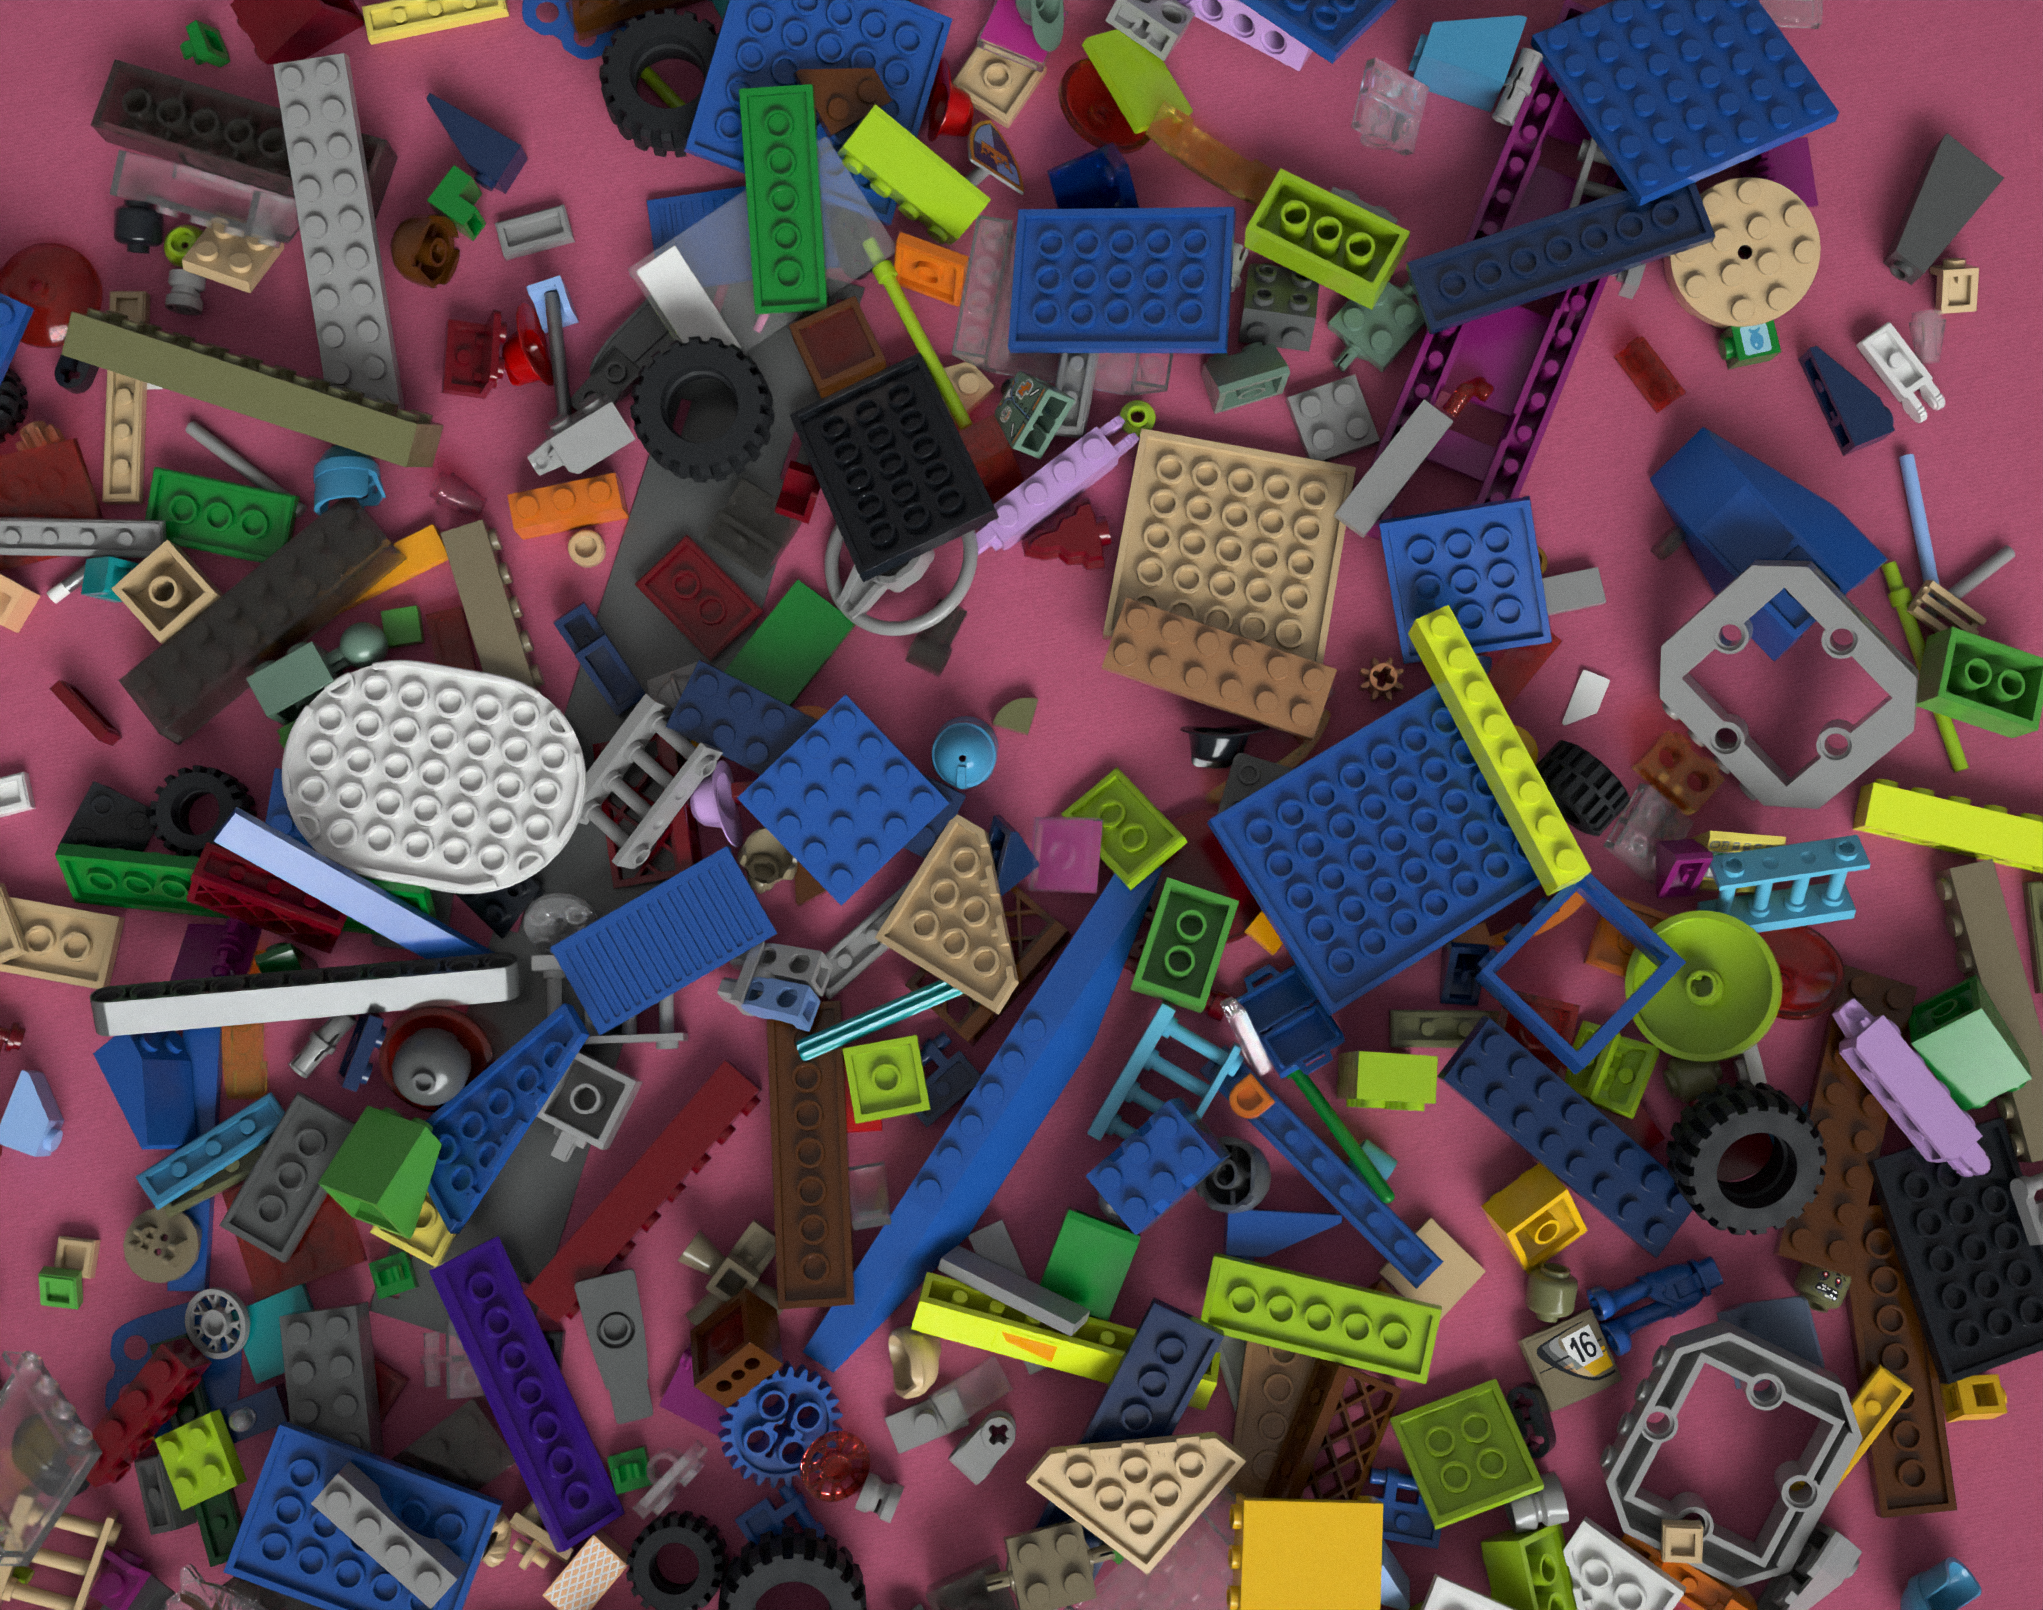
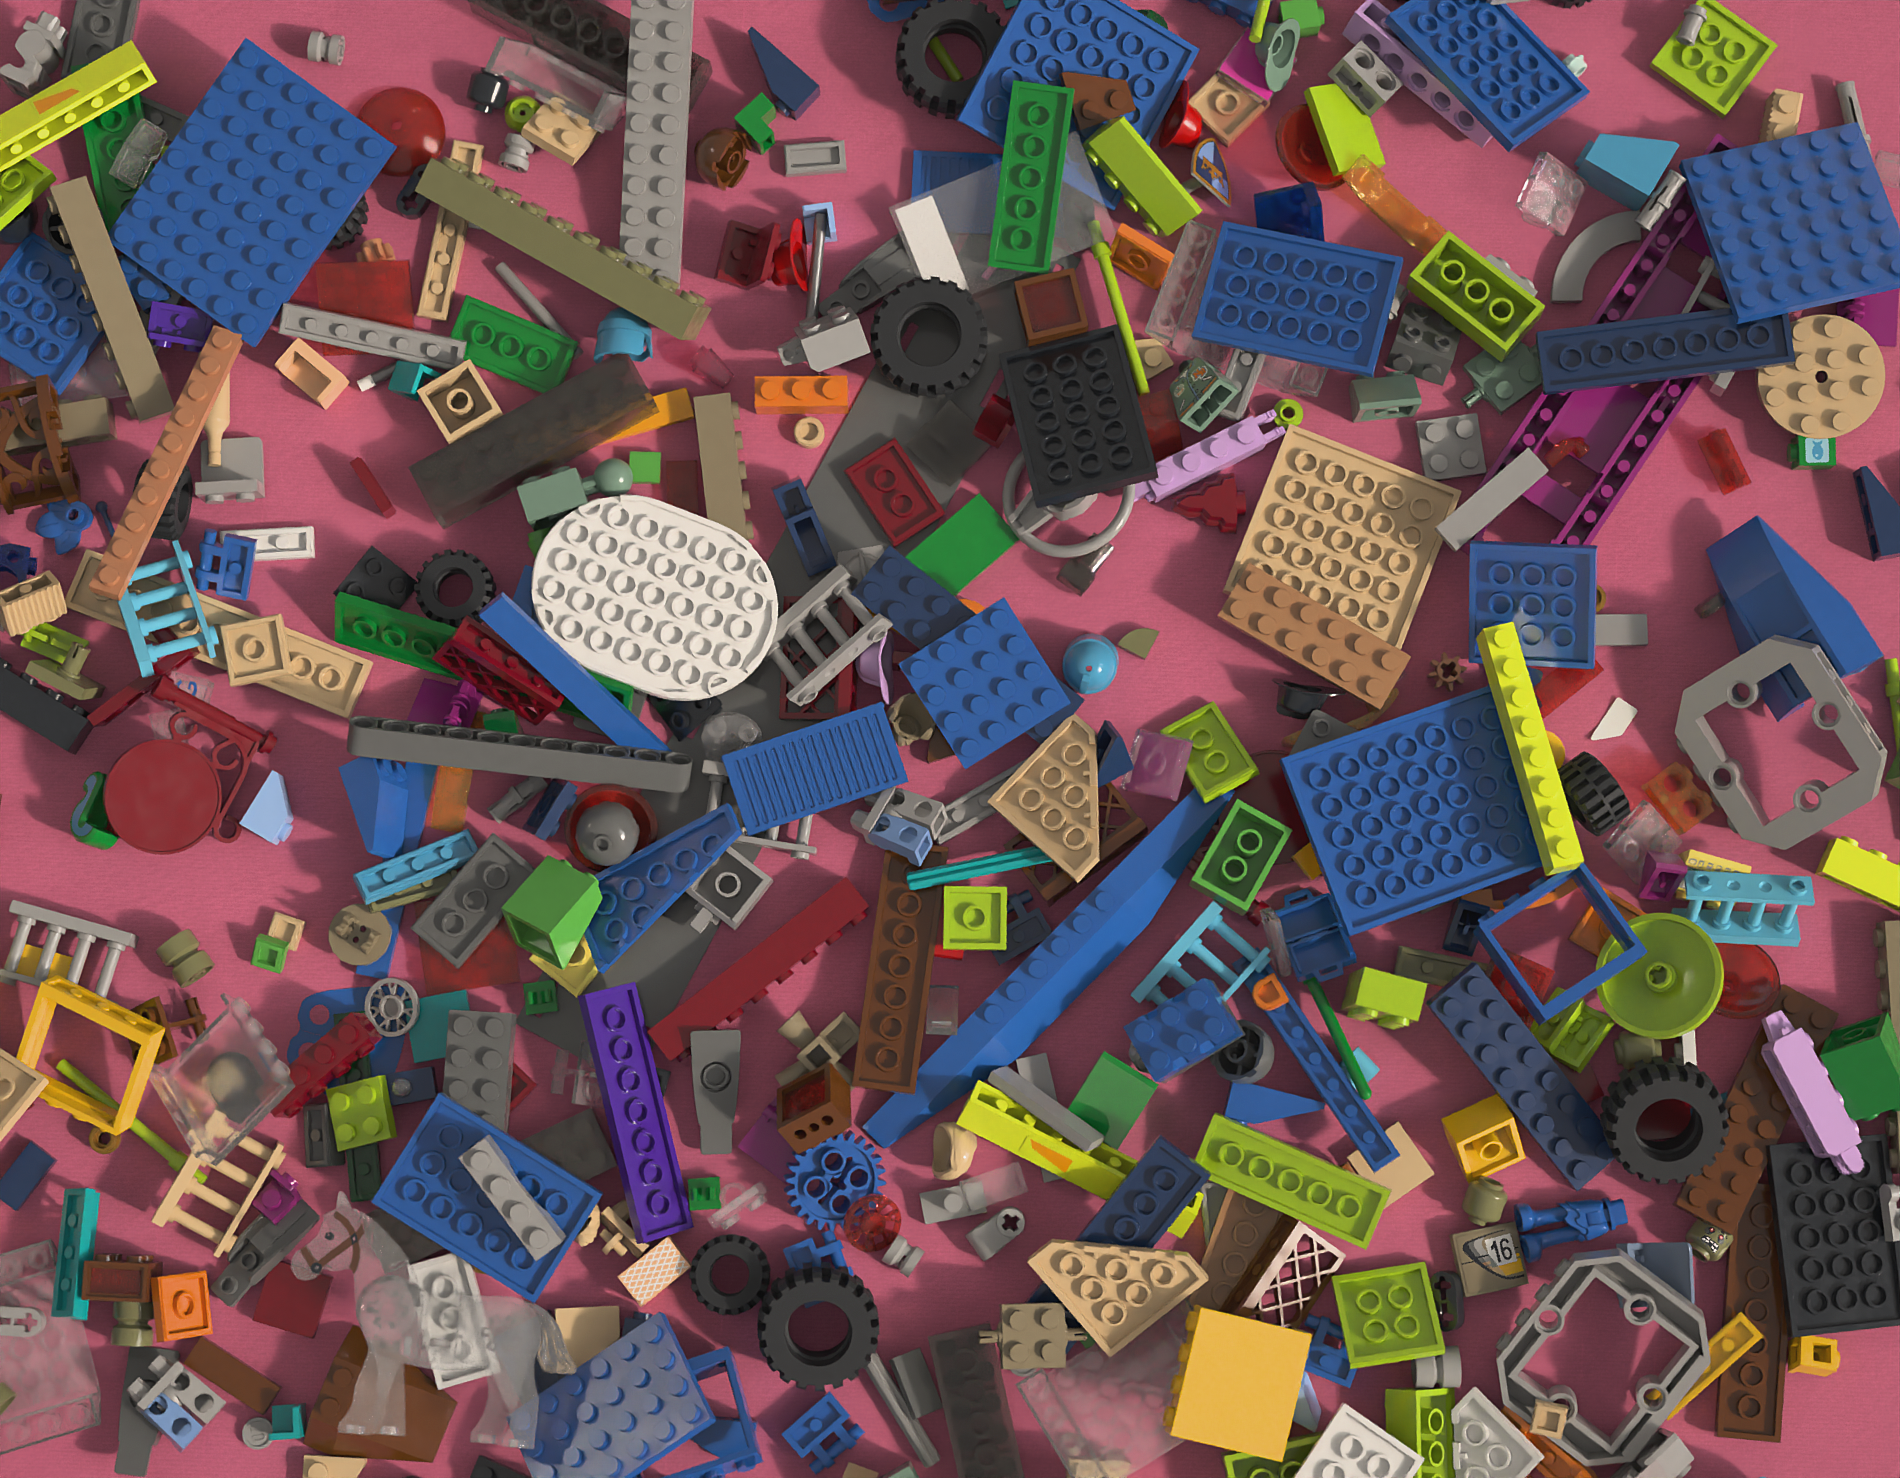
camera: 10 degrees right, 0 degrees up
(1443, 162) = (1587, 249): none -> light grey tile

